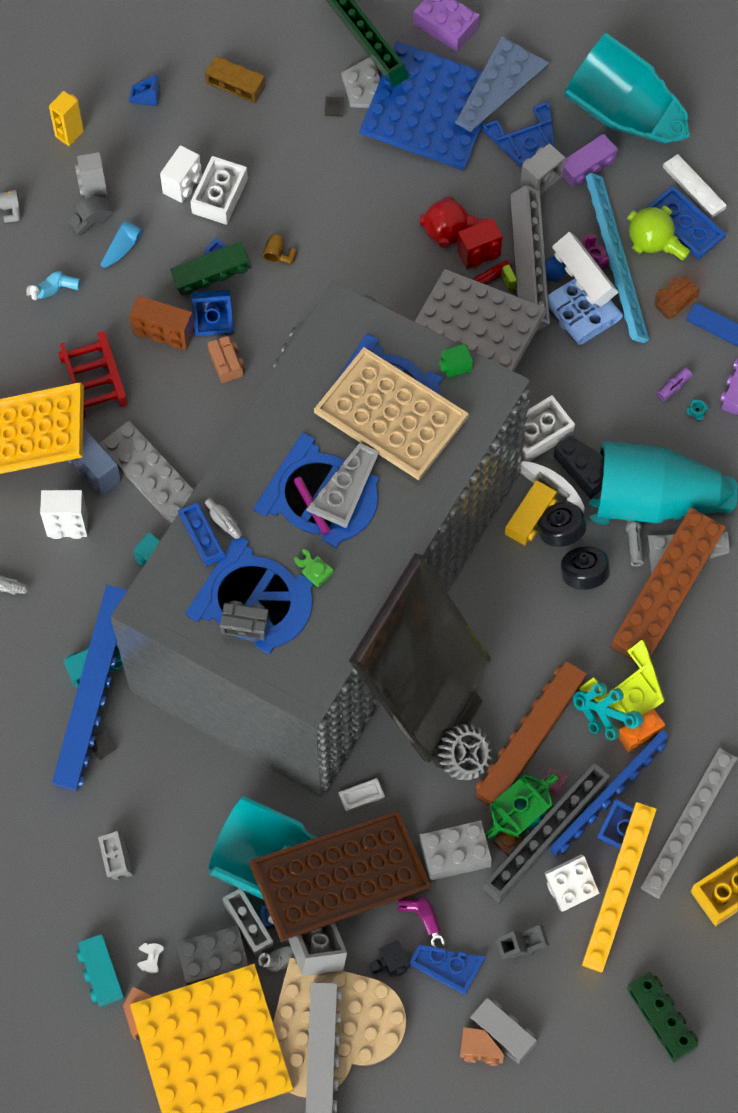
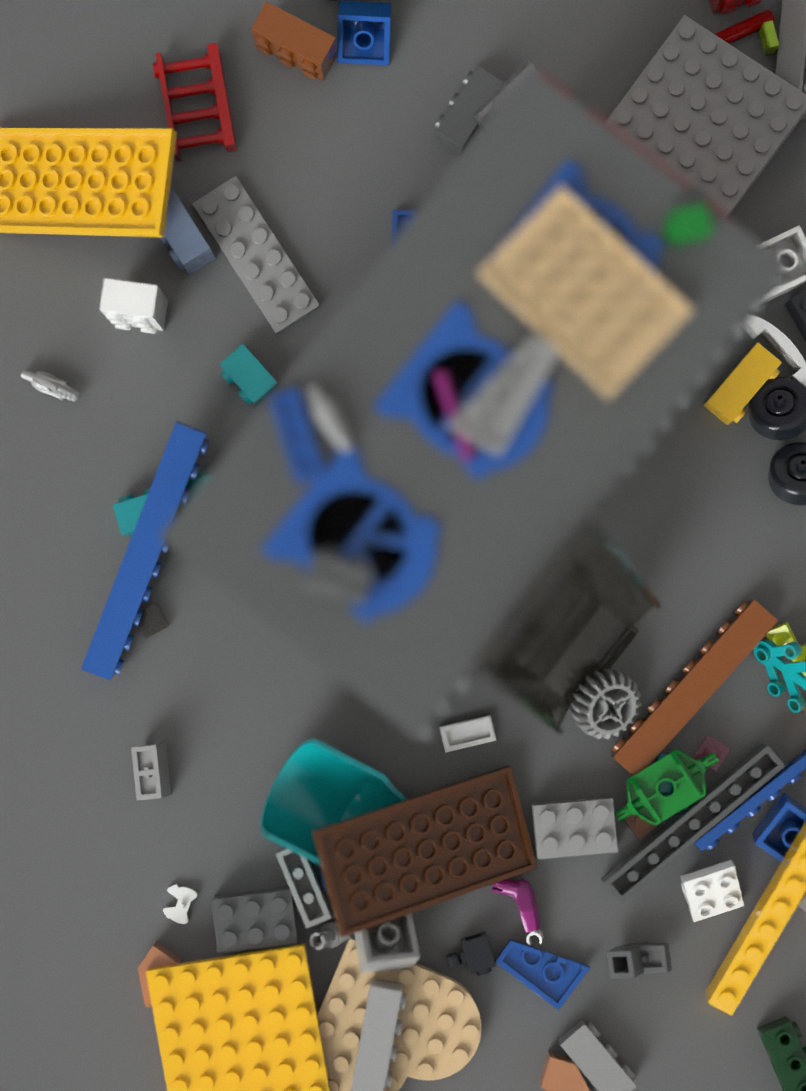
camera: 15 degrees right, 20 degrees up
(99, 971) = (115, 915): teal brick -> none
(225, 359) = (373, 104): nougat brick -> none
(315, 570) = (446, 513): bright green plate -> none

